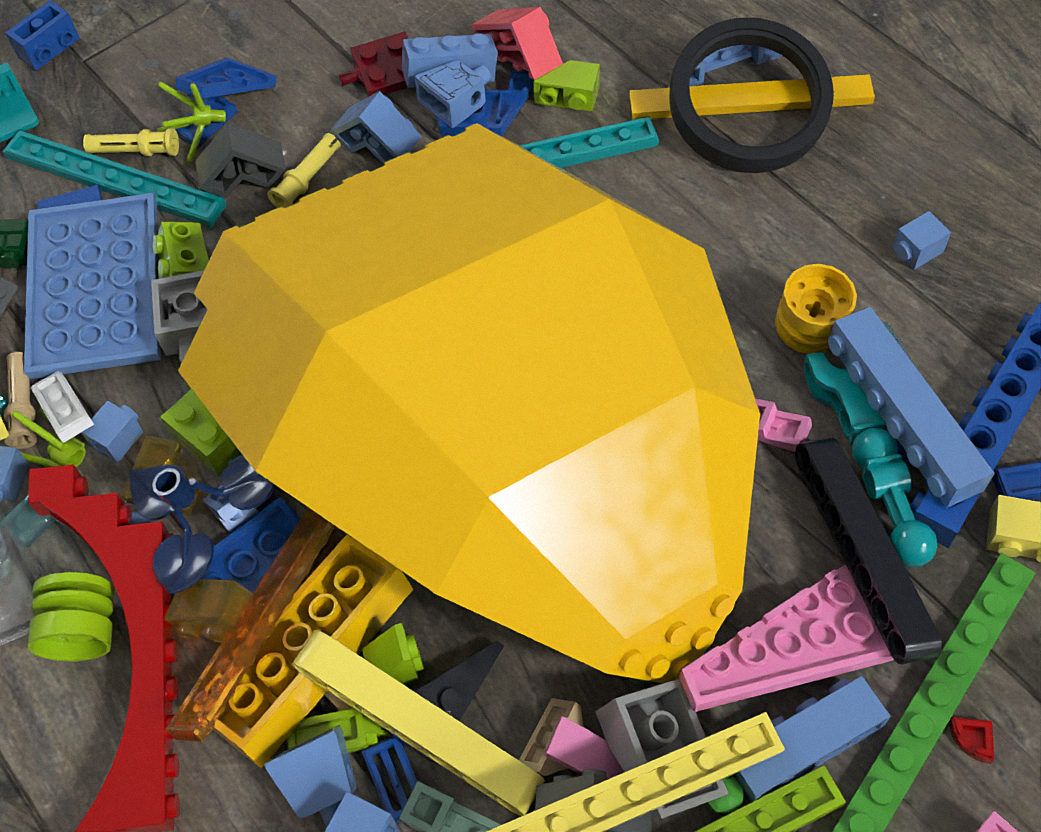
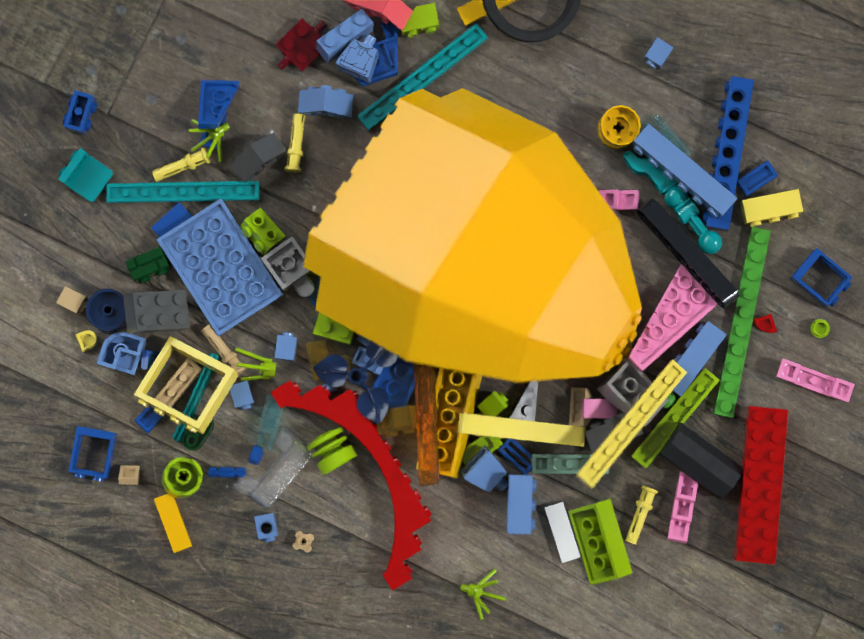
camera: 25 degrees left, 25 degrees up
(61, 406) = (252, 346): white tile -> none

